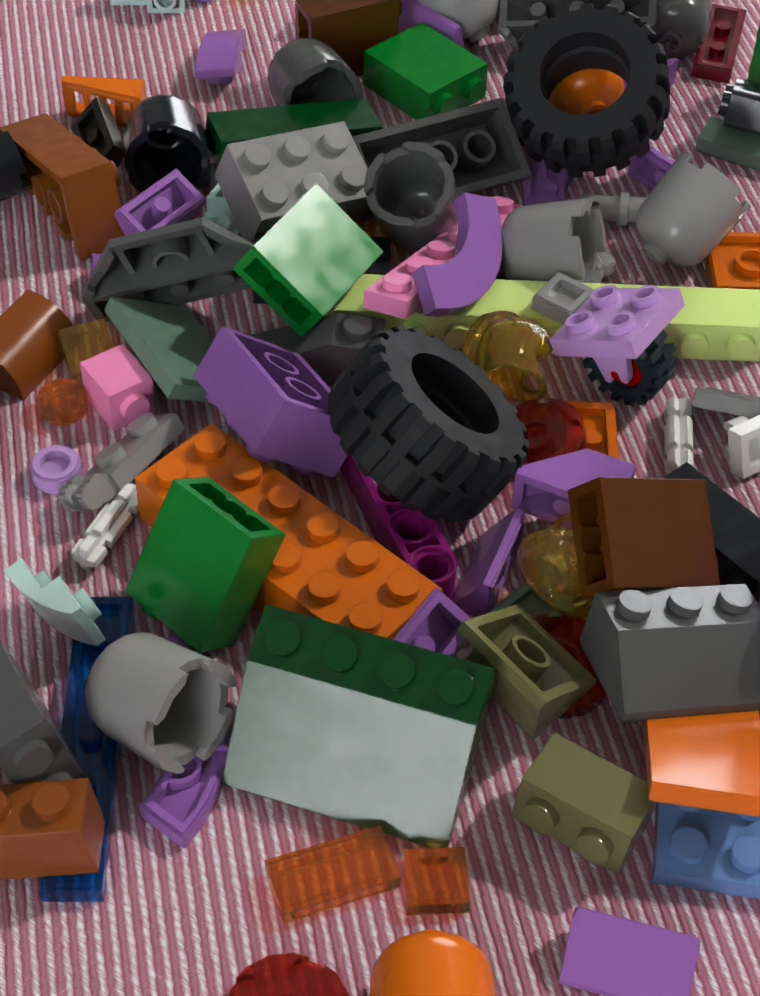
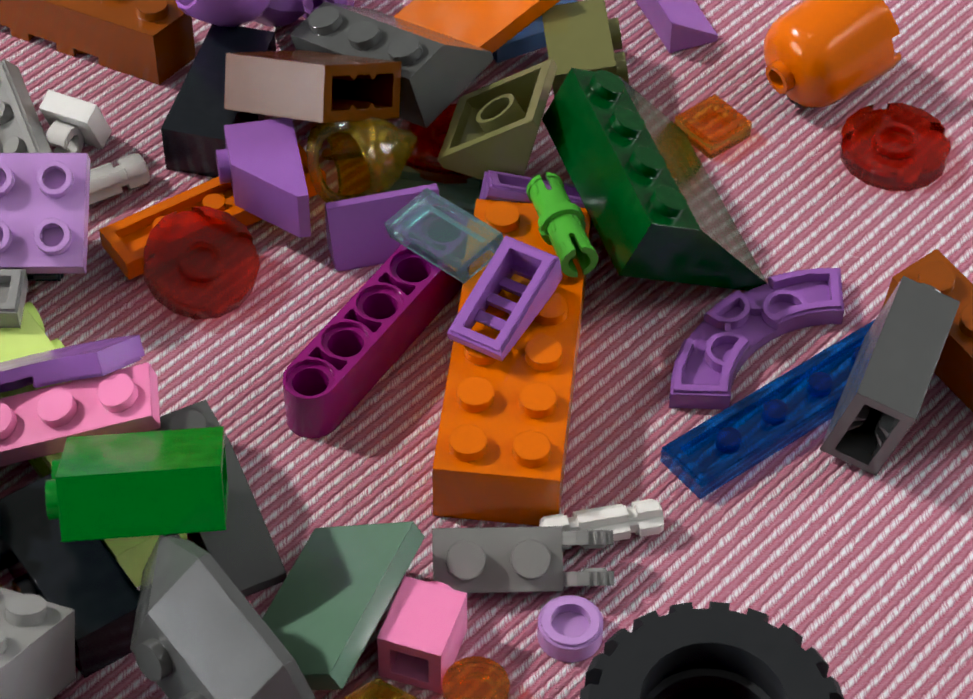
camera: 125 degrees left, 0 degrees up
(57, 604) = (744, 462): light aqua slope -> none
(160, 699) = (771, 300): light grey cylinder -> none
(204, 563) = (609, 360): green brick -> none
(271, 402) = (361, 426): medium lavender brick -> none
(311, 524) = (510, 258): none -> medium lavender slope
(332, 874) = (770, 179): clear orange tile -> none
(342, 586) = (562, 224): none -> bright green pin
(408, 533) = (444, 235): none -> clear light blue tile
(427, 425) = (306, 275): black tyre -> none
(507, 350) = (107, 304): clear yellow piece -> none

